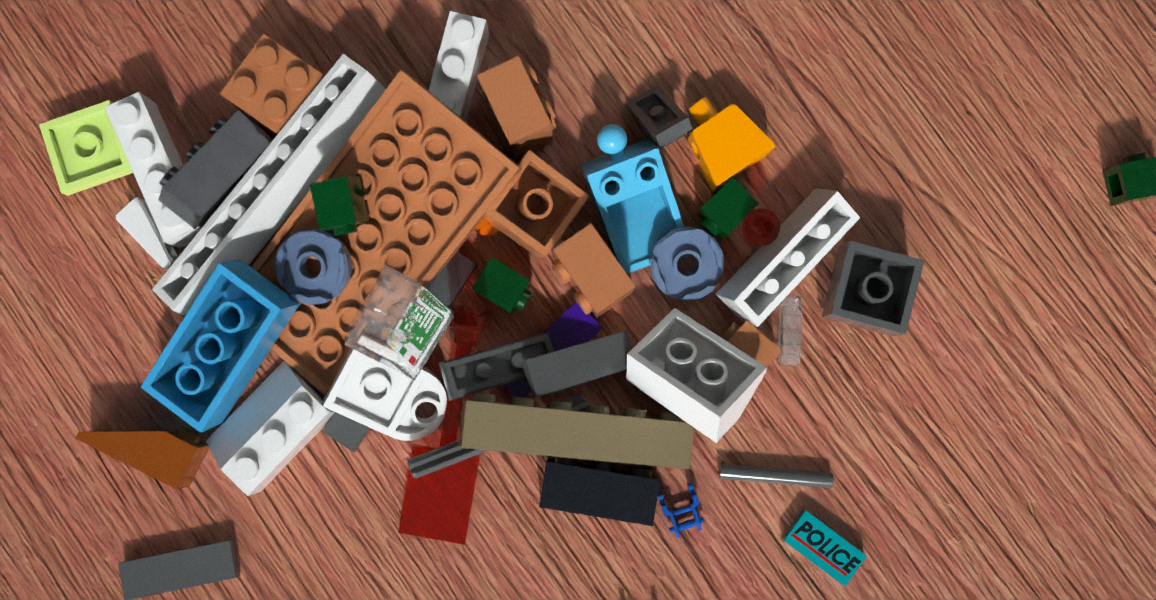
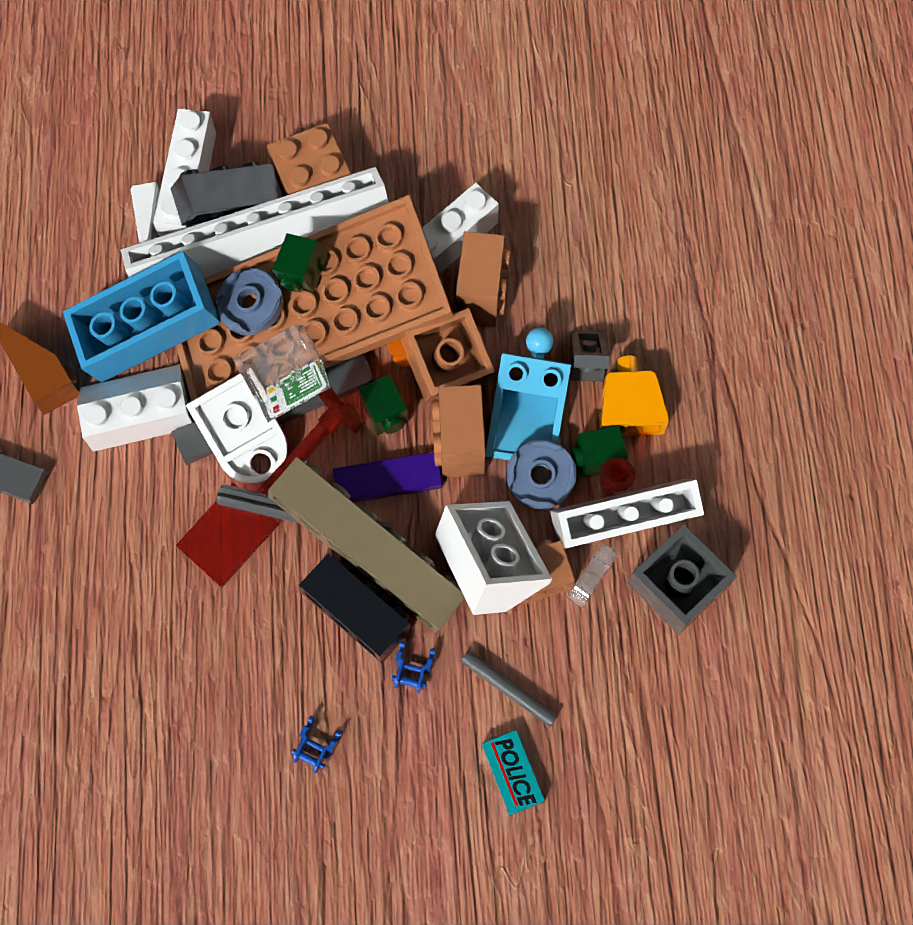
camera: 30 degrees right, 15 degrees down
(84, 149) = (142, 133): yellowish green plate -> none
(492, 366) = (341, 458): dark grey tile -> none
(577, 364) = (400, 494): dark grey tile -> none

